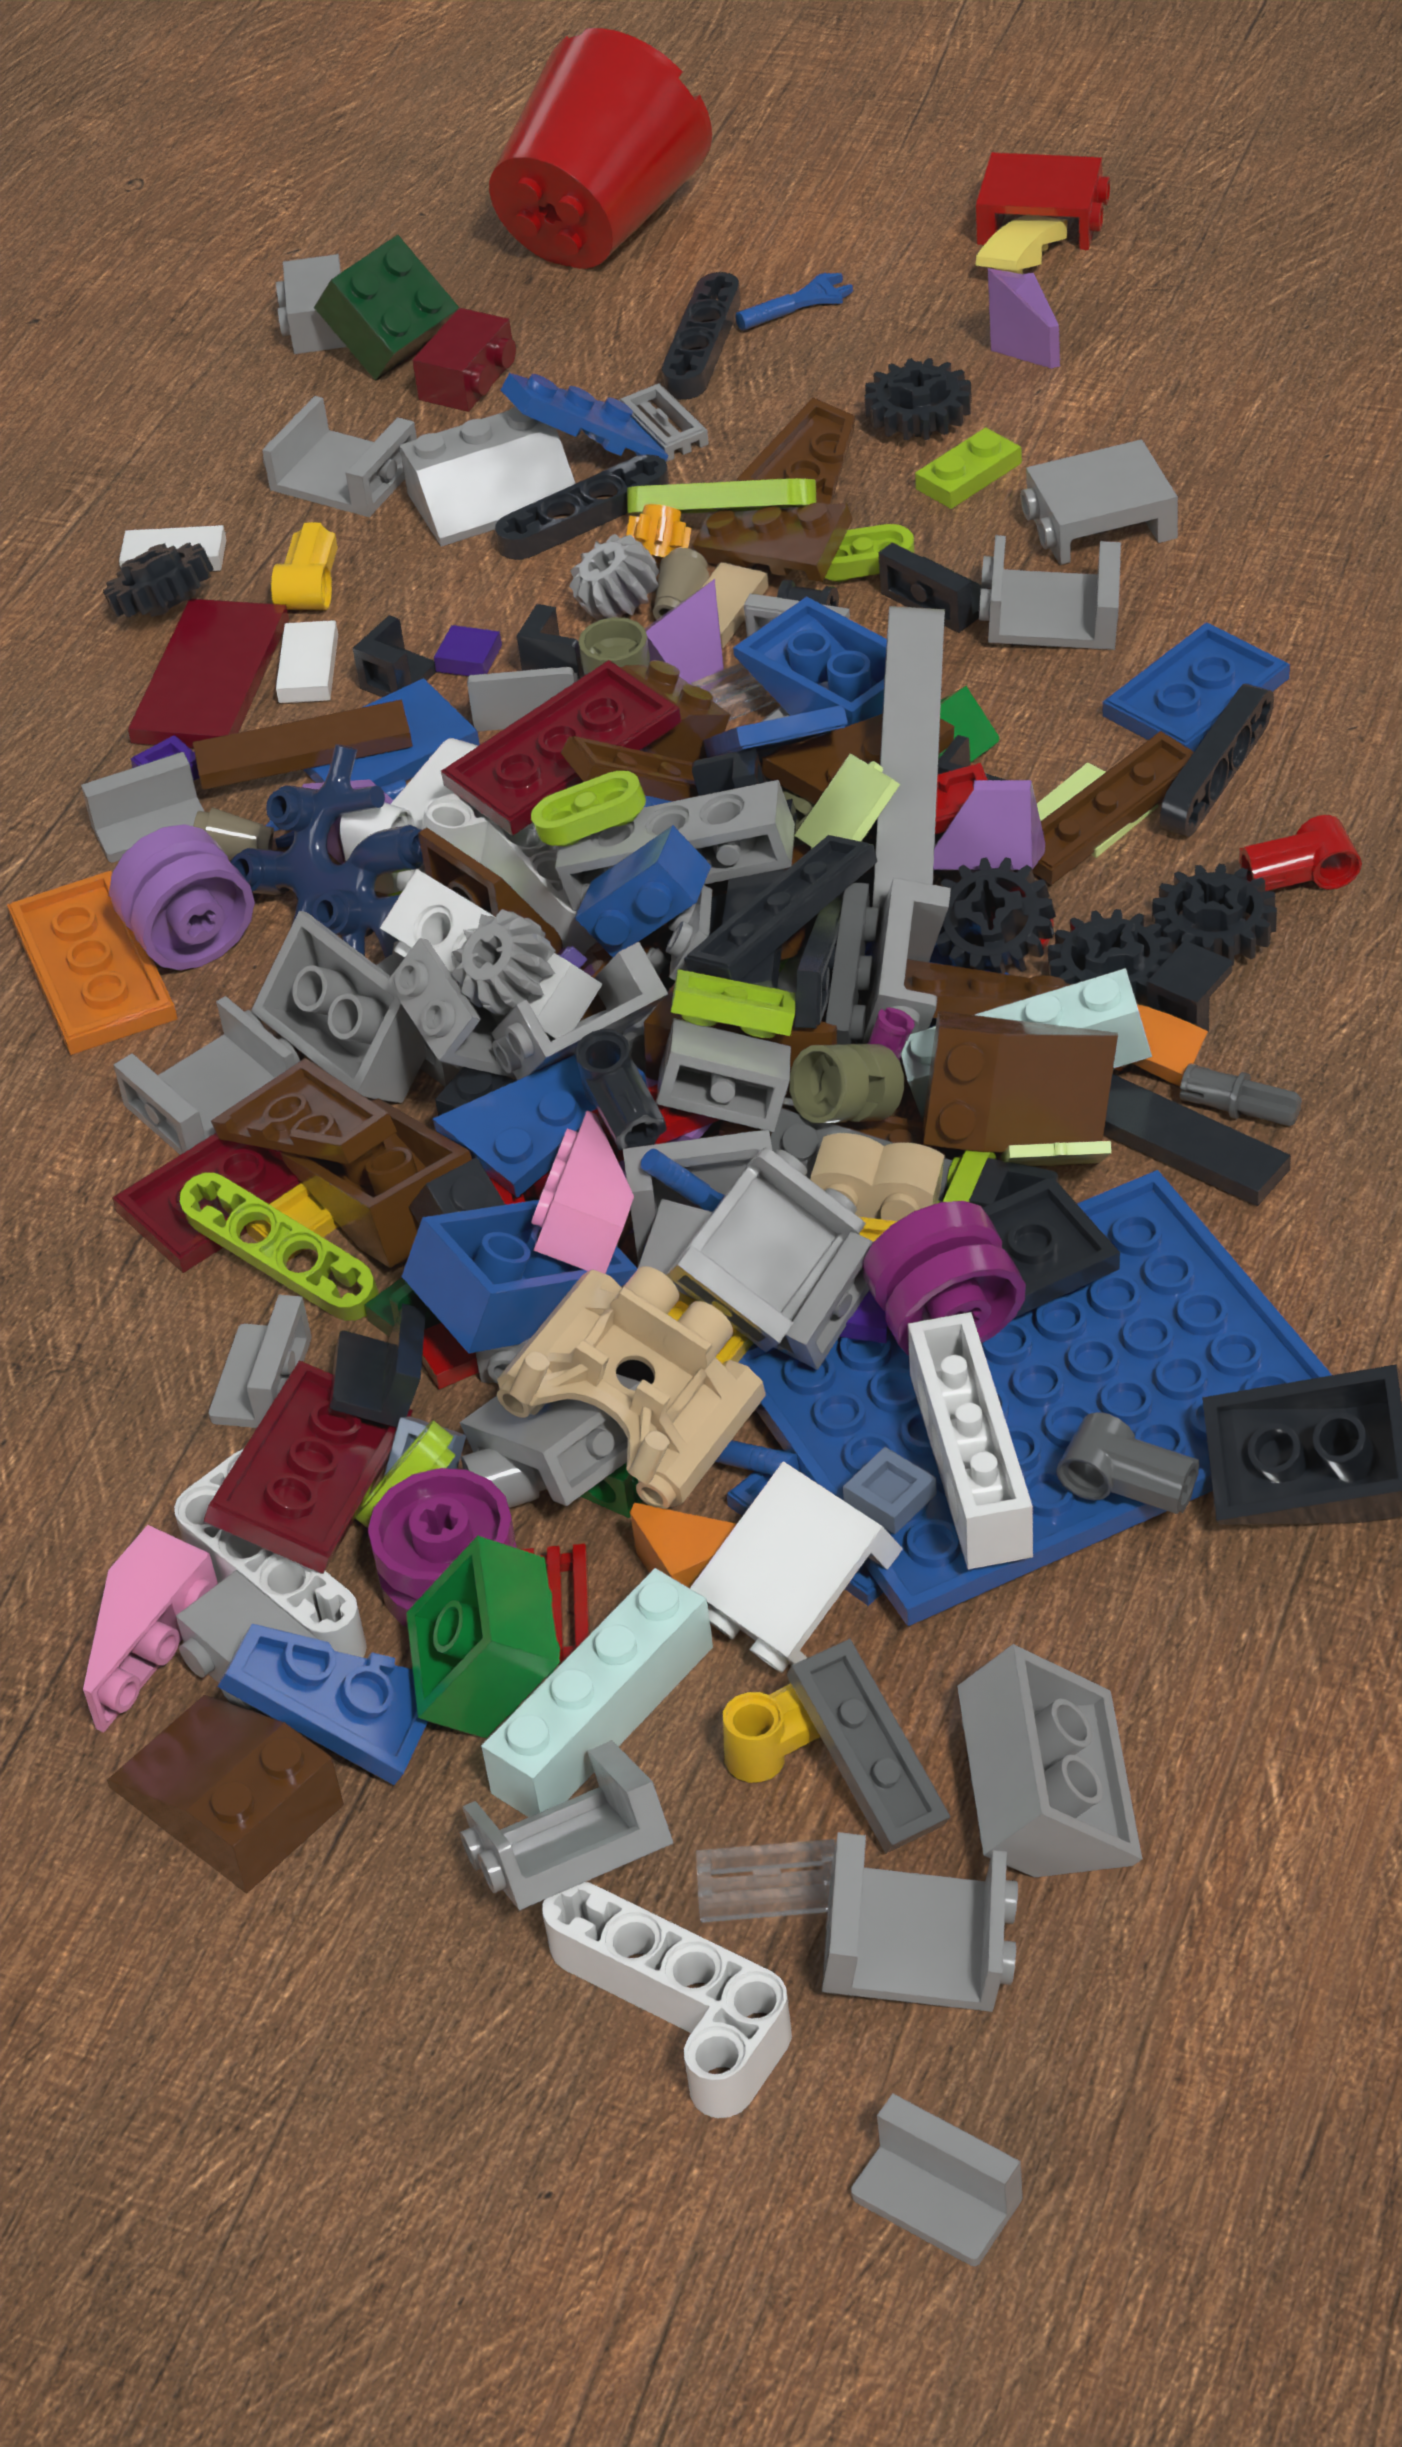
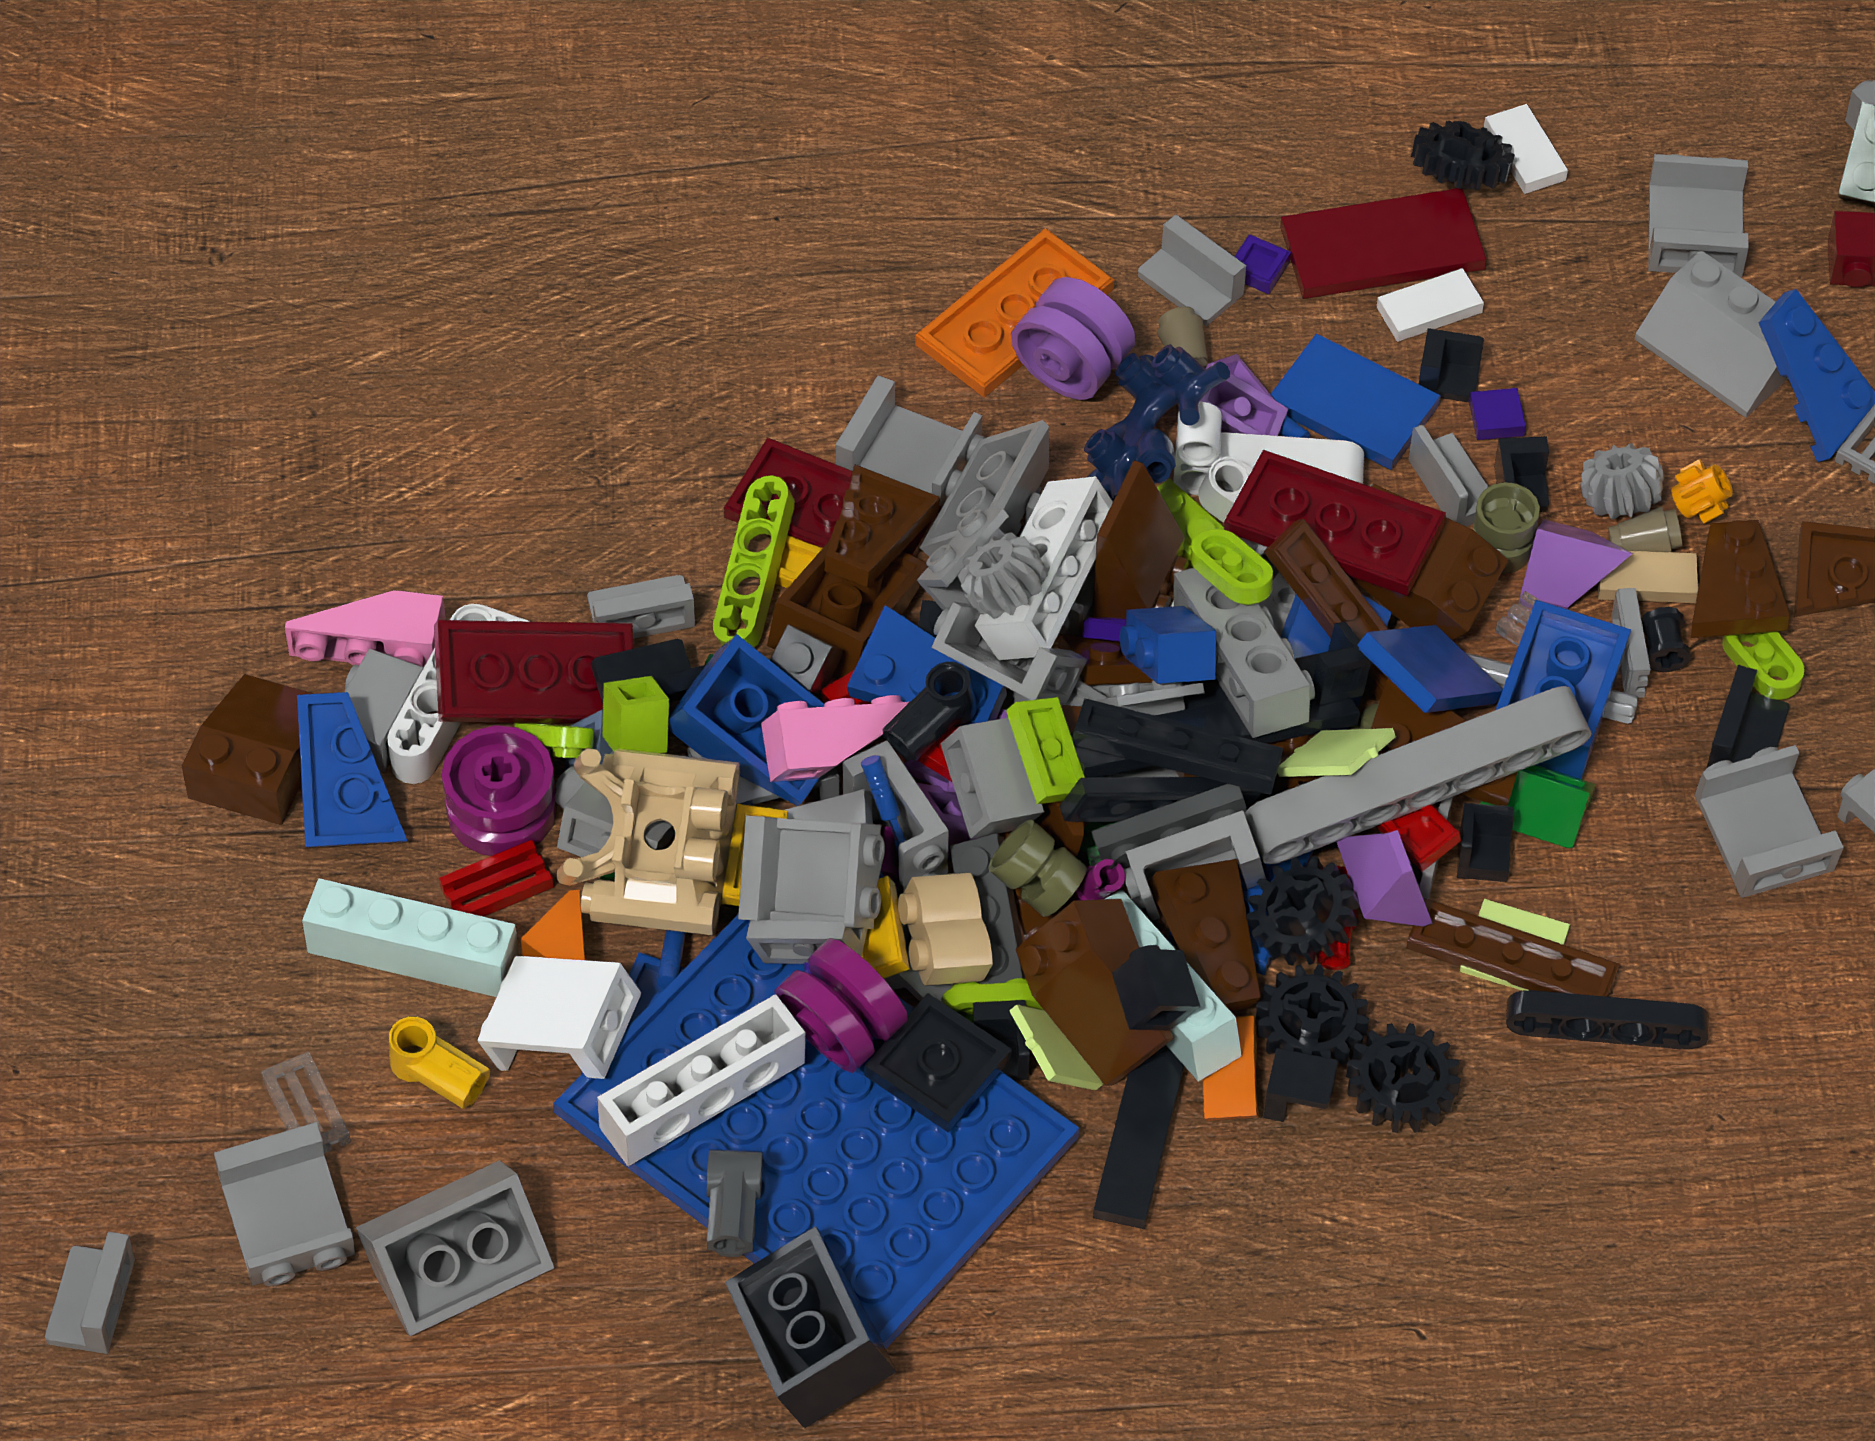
camera: 60 degrees right, 10 degrees up
(301, 744) = (1309, 344): reddish brown tile -> none
(305, 576) = (1522, 258): yellow piece -> none
(450, 1368) = (635, 715): none -> lime brick
(482, 1637) = (416, 843): green brick -> none
(535, 531) = (1724, 427): black beam -> none
(571, 1839) = (273, 964): light grey panel -> none
(597, 1931) = (187, 1070): white beam -> none
(724, 495) = (1771, 519): lime beam -> none
(868, 1746) = (419, 1120): dark grey plate -> none
(890, 1490) = (644, 1044): sand blue plate -> none
(1072, 1003) = (1155, 988): none -> black brick
(1192, 686) = (1724, 974): blue tile -> none
(1239, 1095) = (1201, 1163): dark grey axle -> none
(1316, 853) = (1514, 1132): red piece -> none

